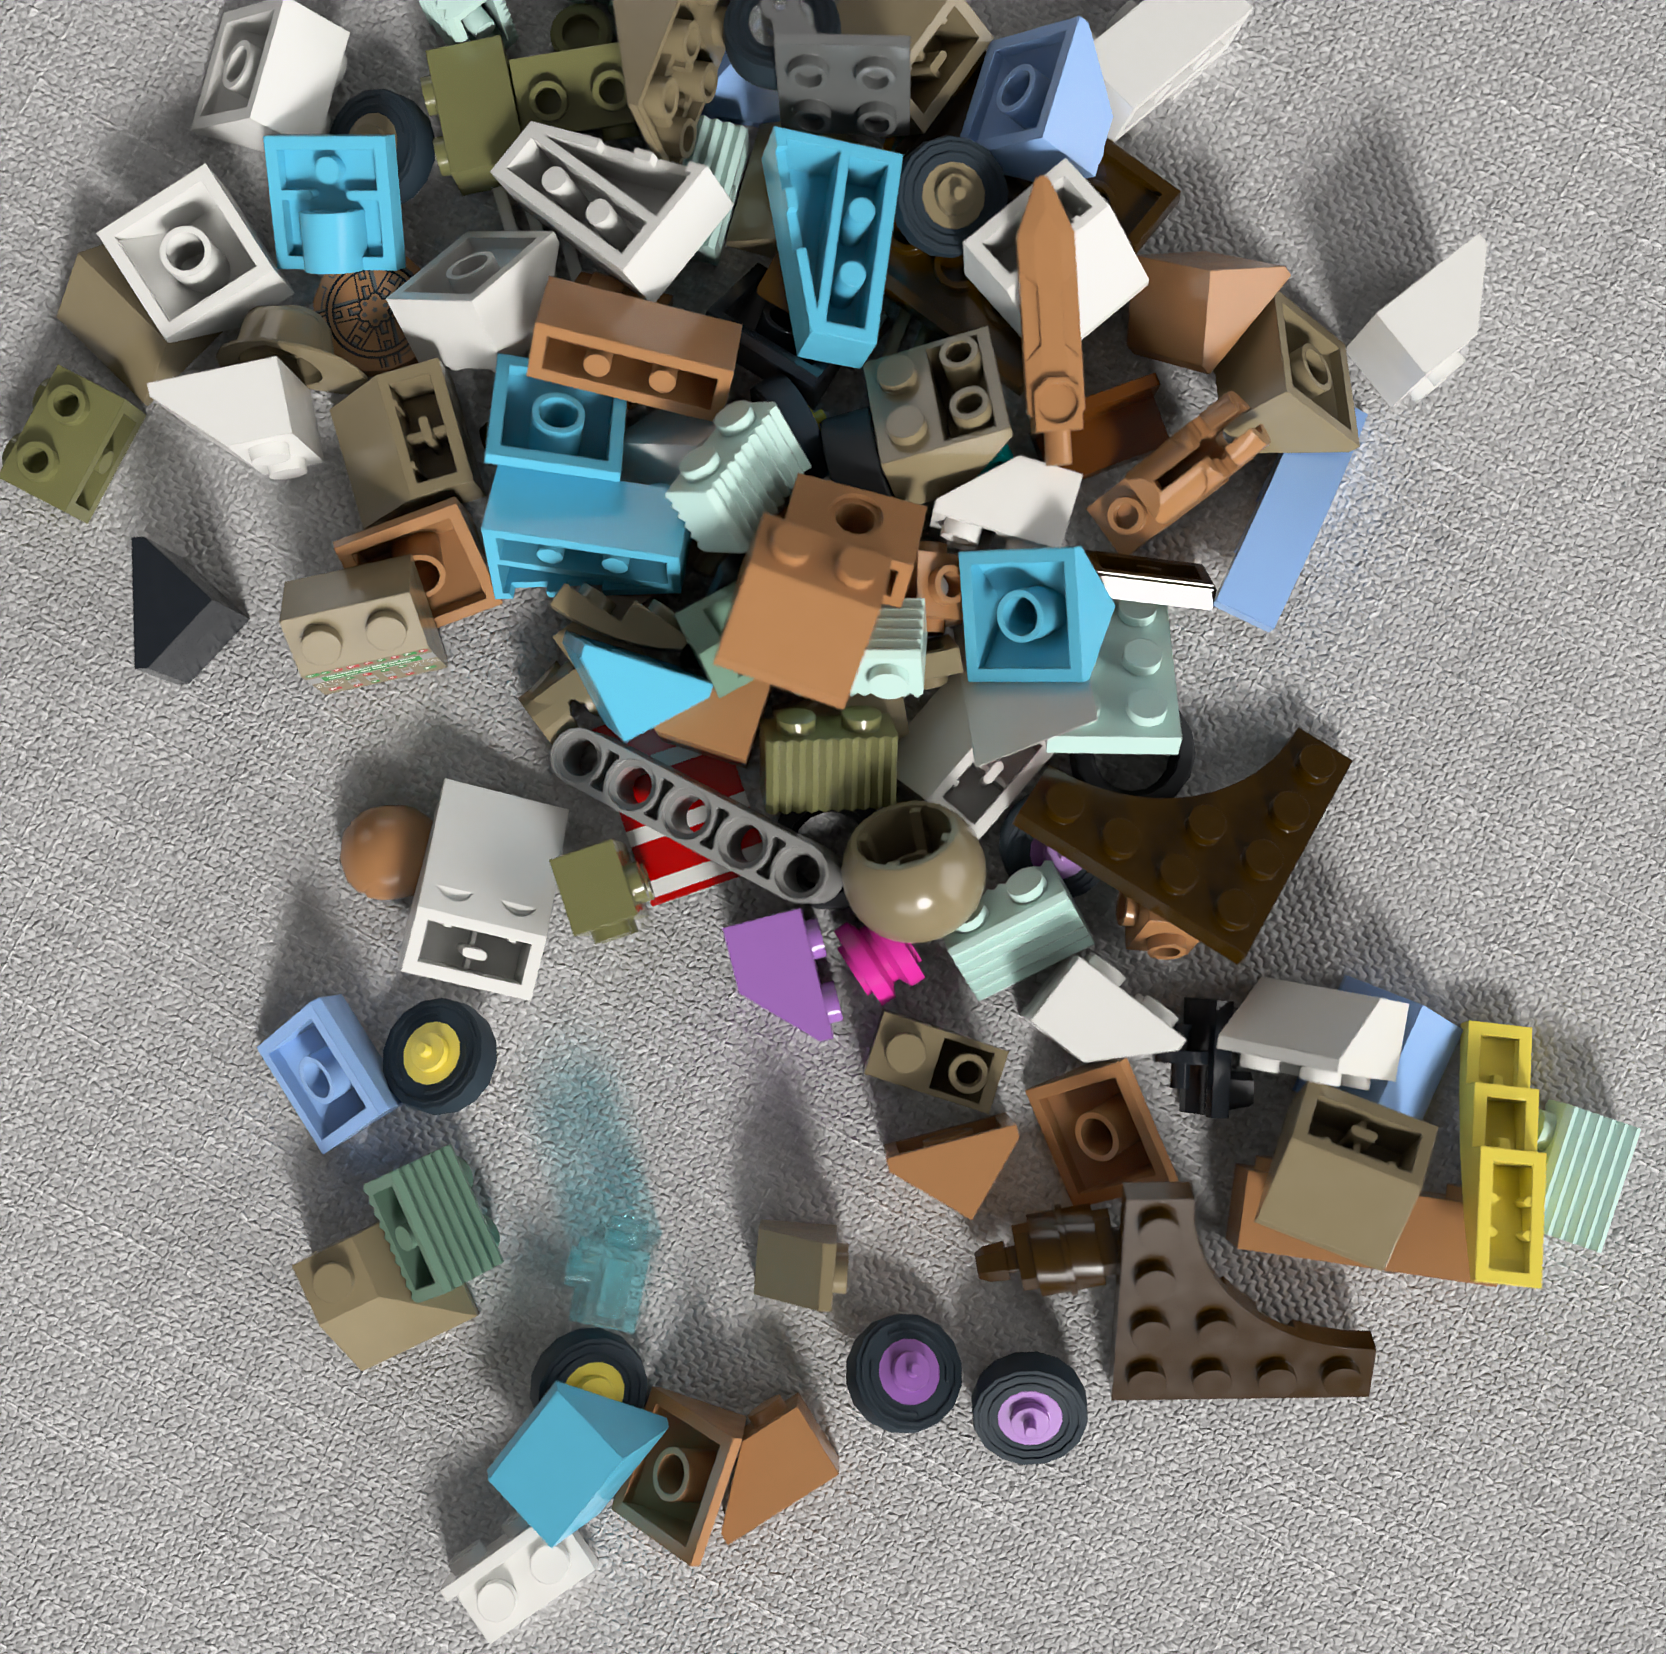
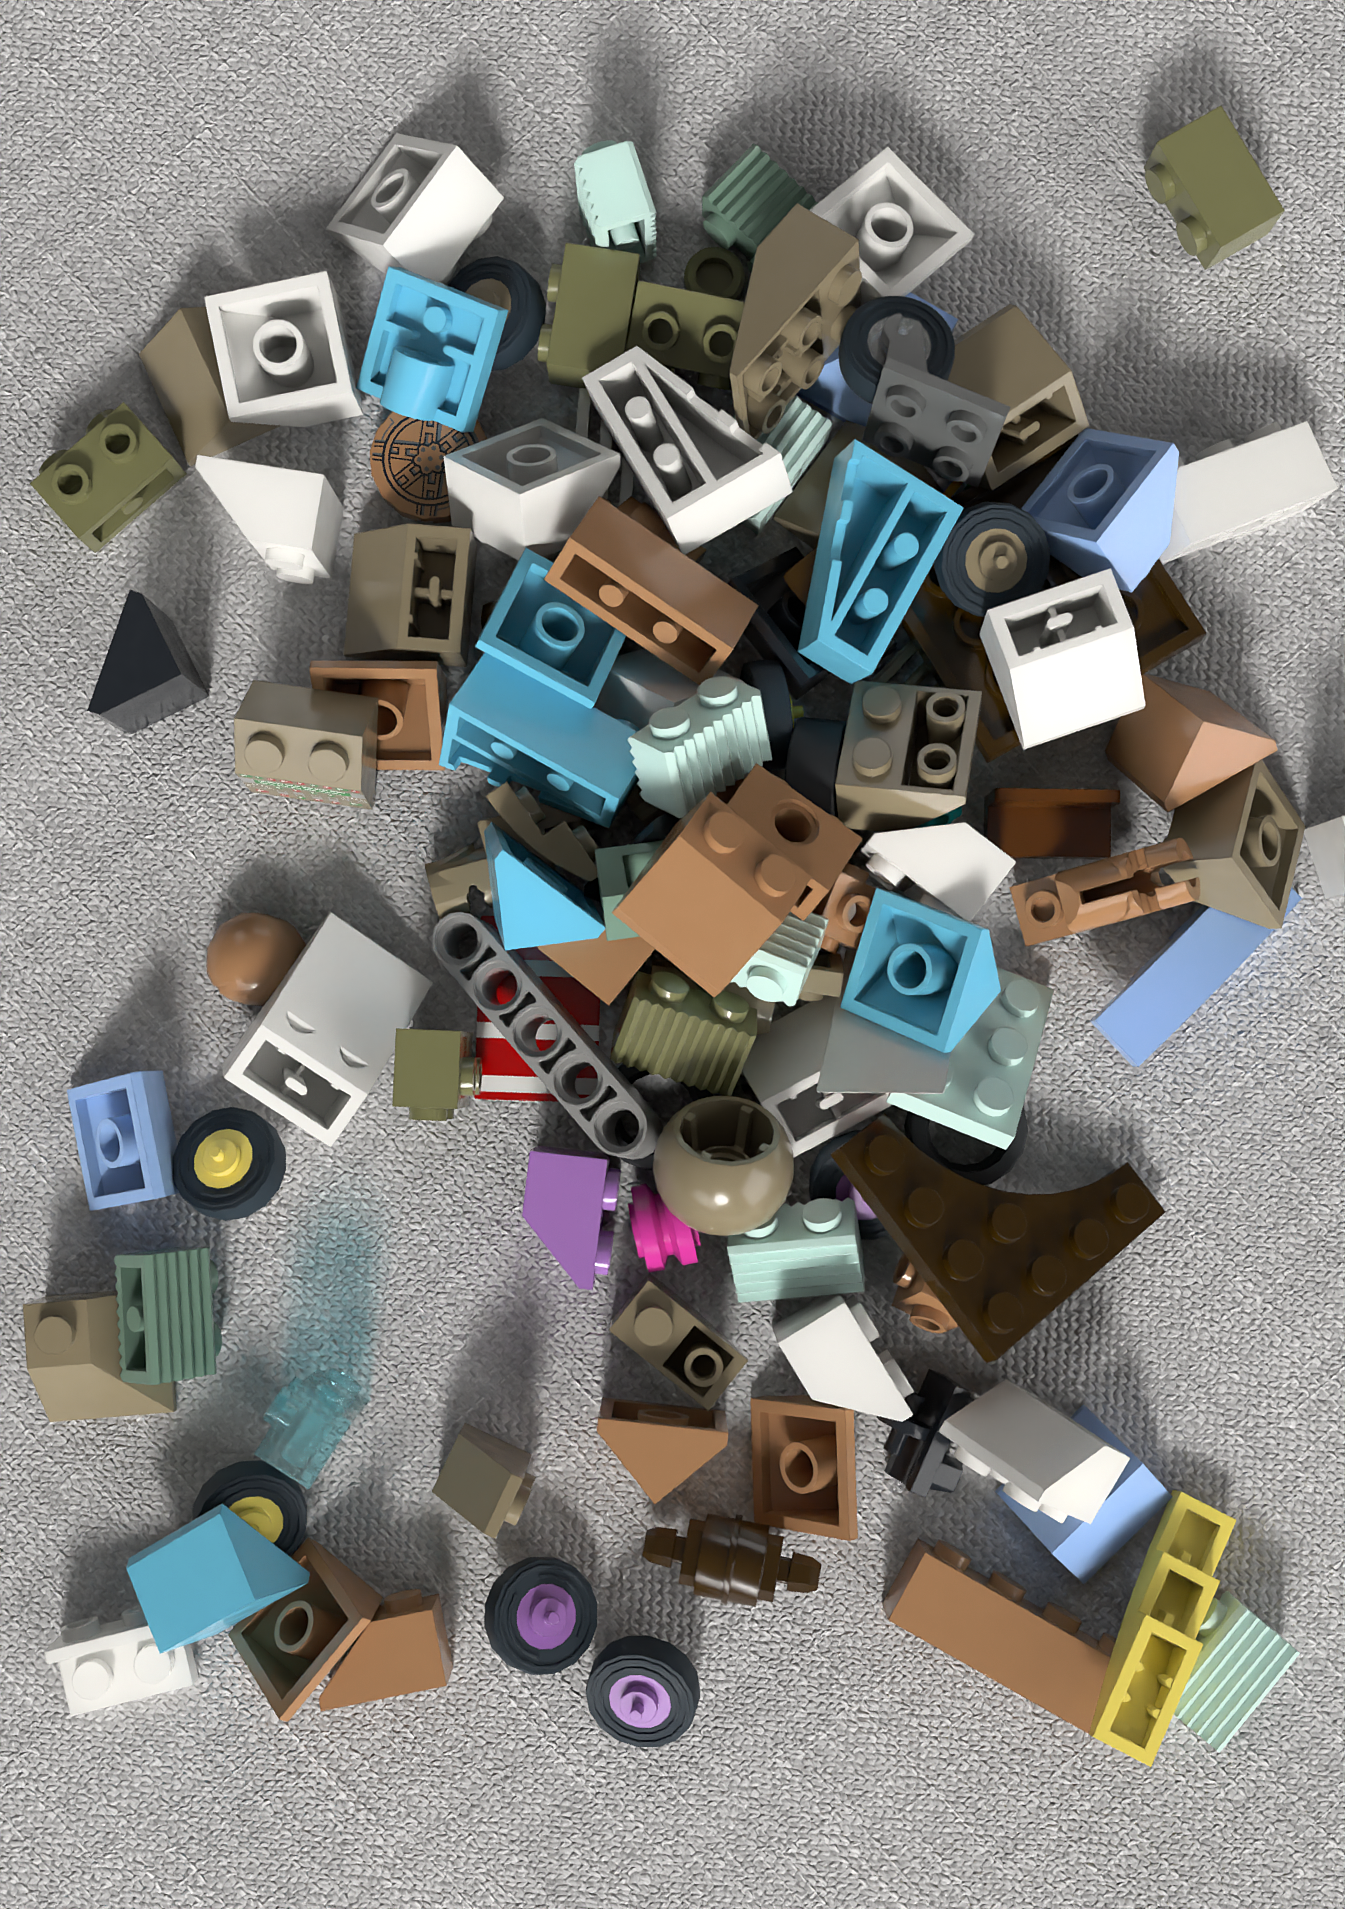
camera: 15 degrees right, 0 degrees up
(300, 341) = (347, 460): dark tan piece -> none
(1050, 322) = (1039, 713): medium nougat piece -> none
(1154, 580) = (1045, 977): tile -> none
(1197, 1335) = (824, 1688): dark brown plate -> none
(1345, 1174) = (1012, 1593): dark tan slope -> none

